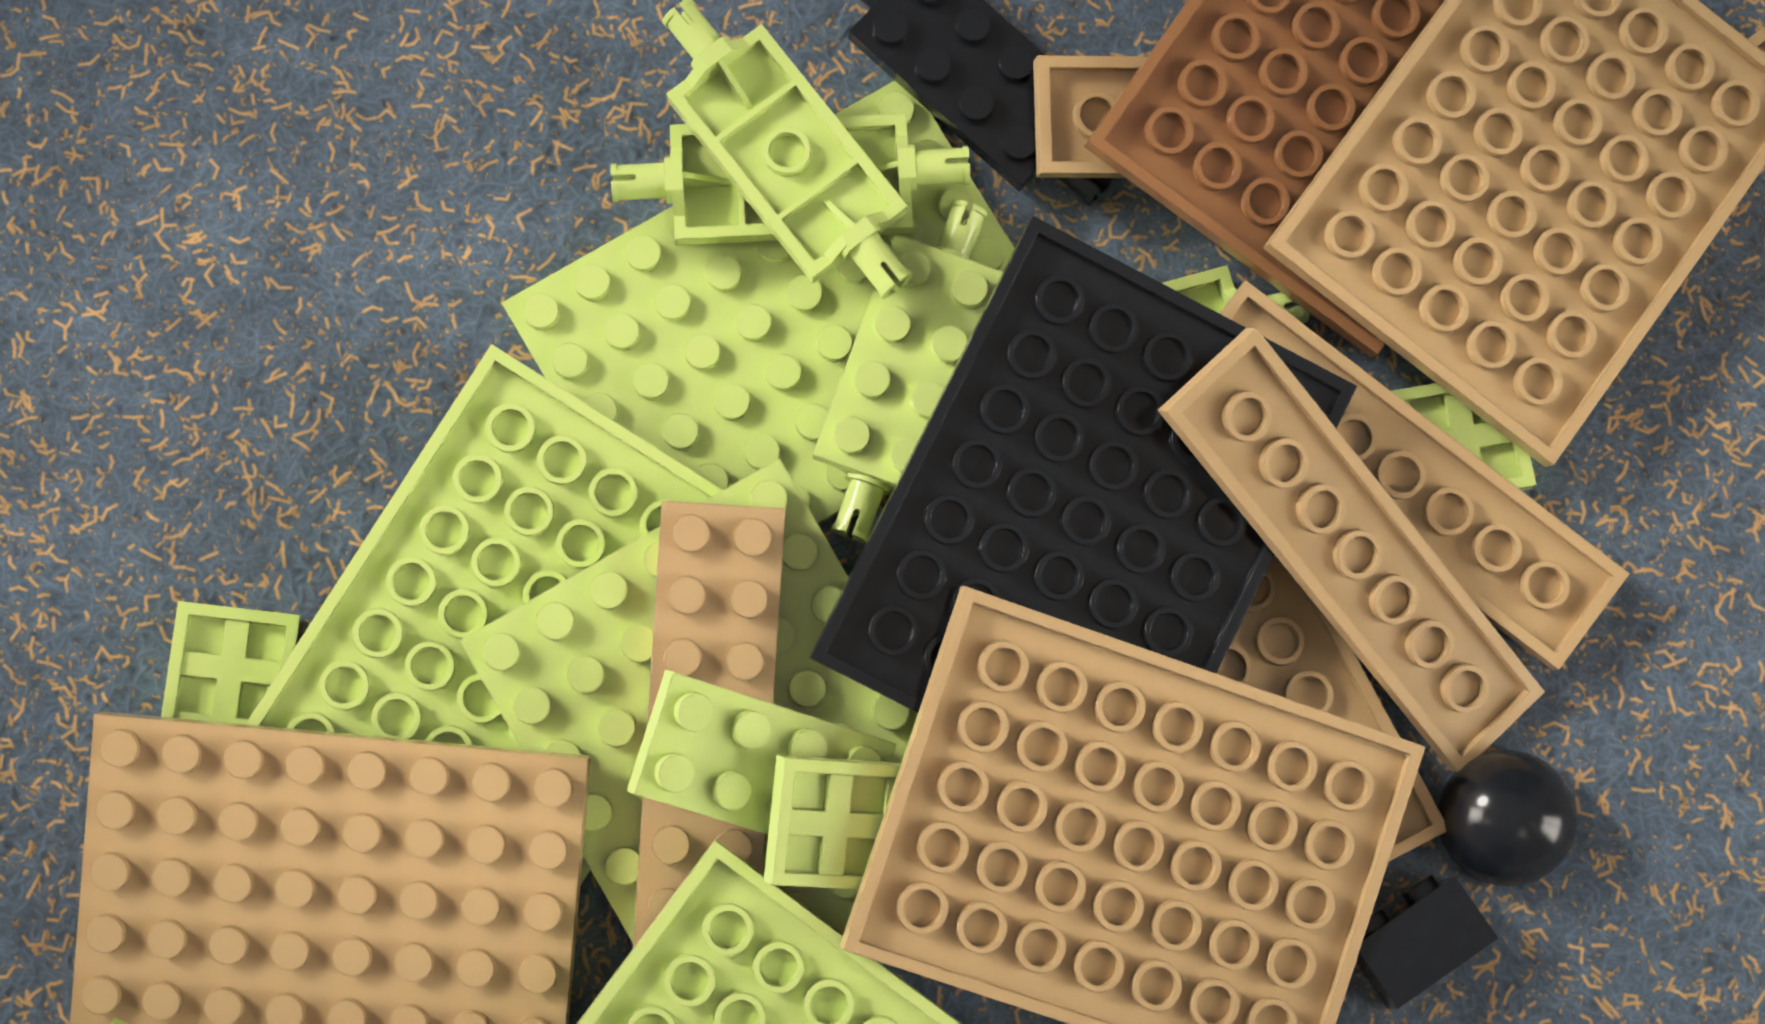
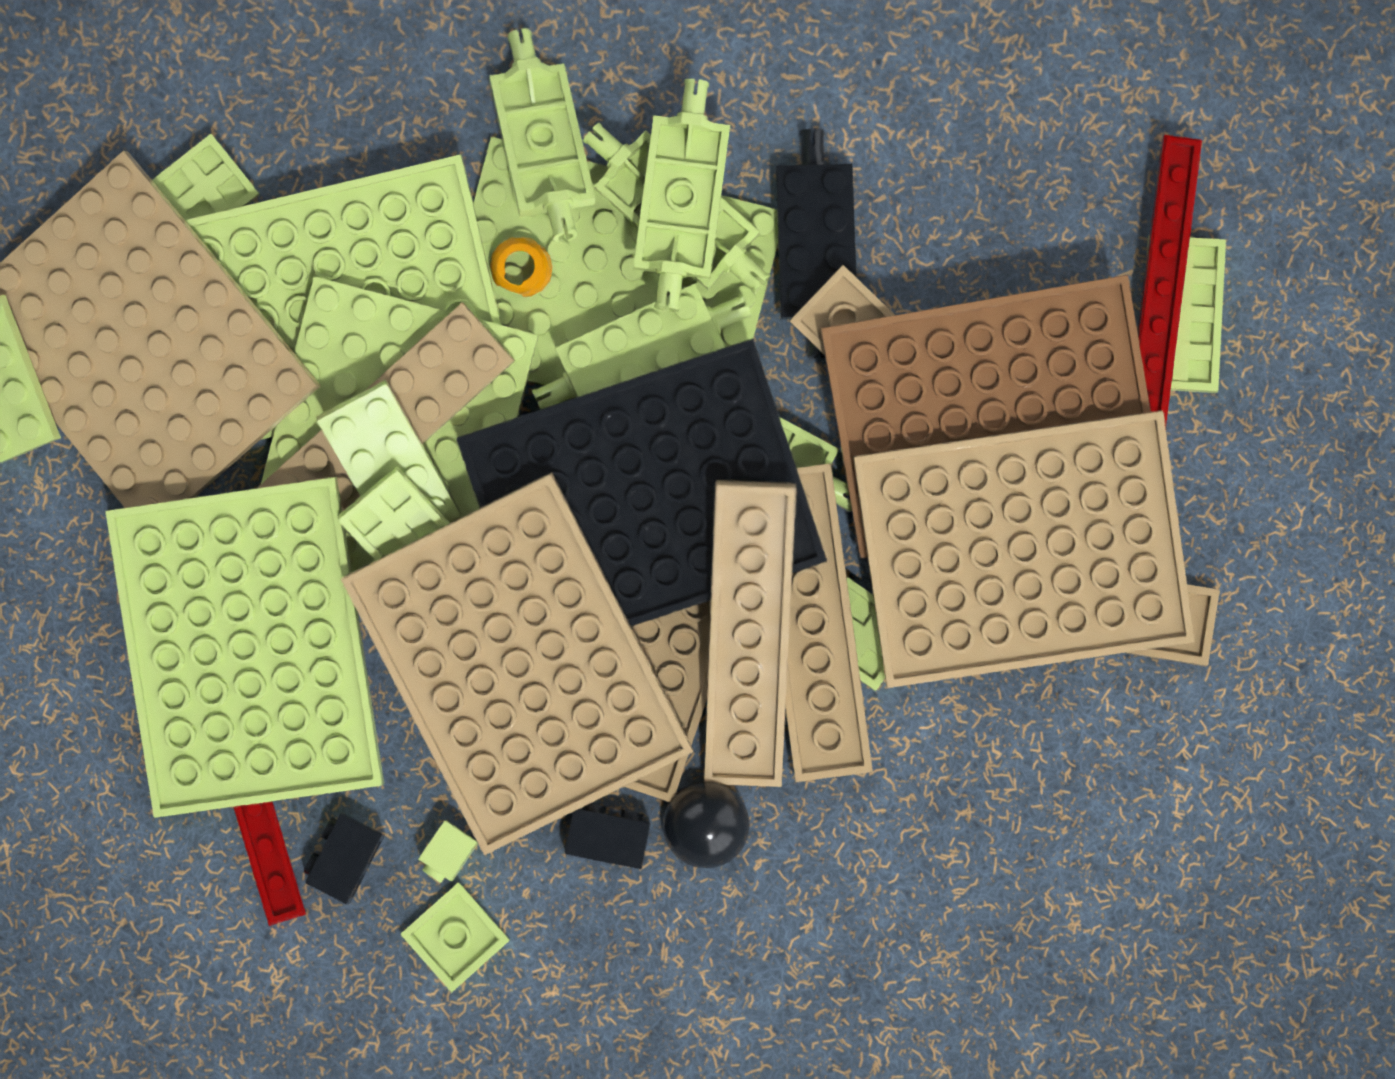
camera: 50 degrees right, 5 degrees up
(562, 246) = (541, 138): none -> yellowish green plate
(660, 435) = (542, 270): none -> light orange piece

